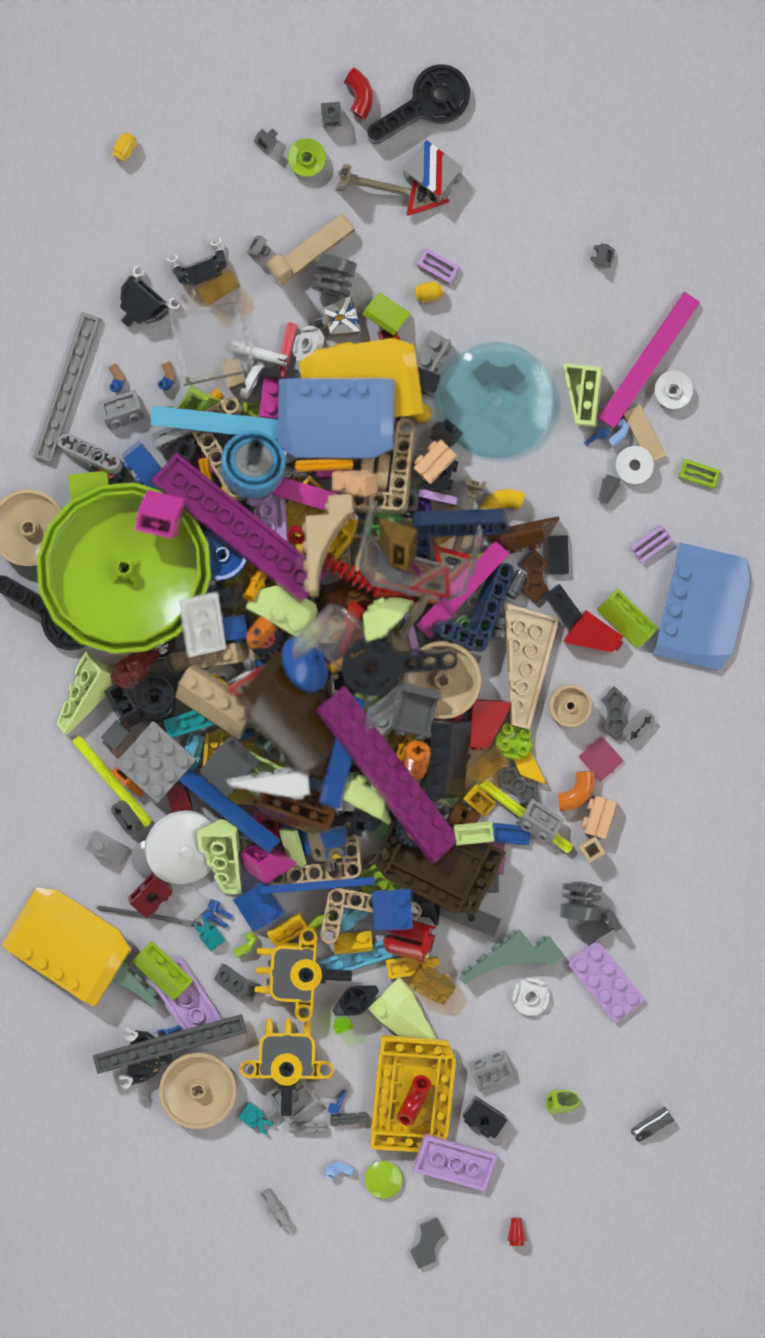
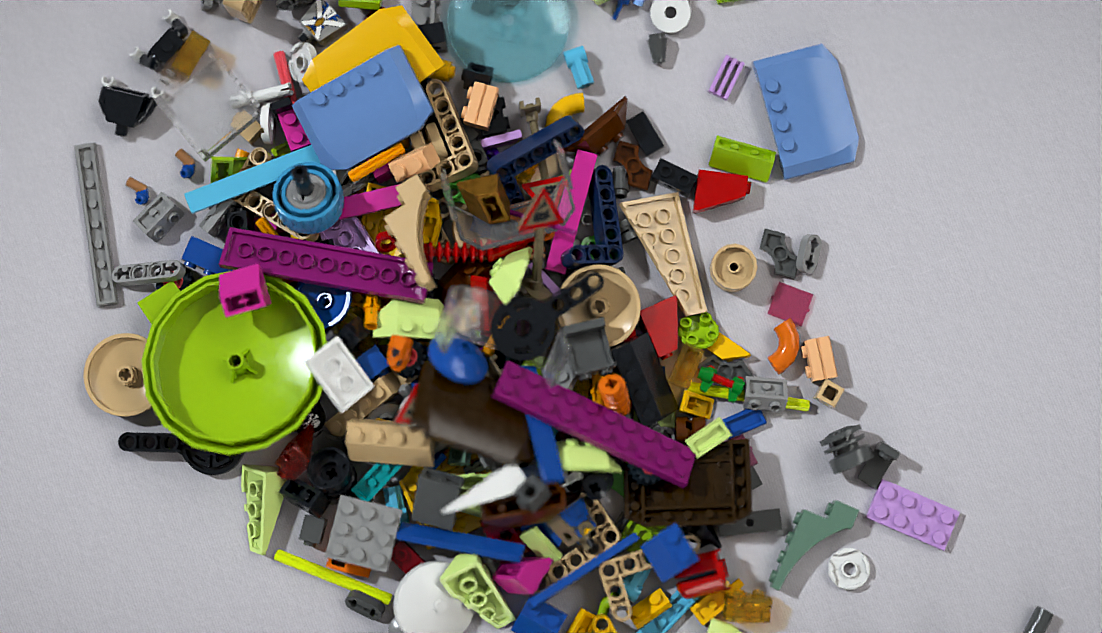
camera: 20 degrees left, 5 degrees down
(307, 798) = (529, 486): none -> dark grey brick
(501, 783) = (709, 376): none -> green piece
(534, 467) = (577, 62): none -> medium azure piece

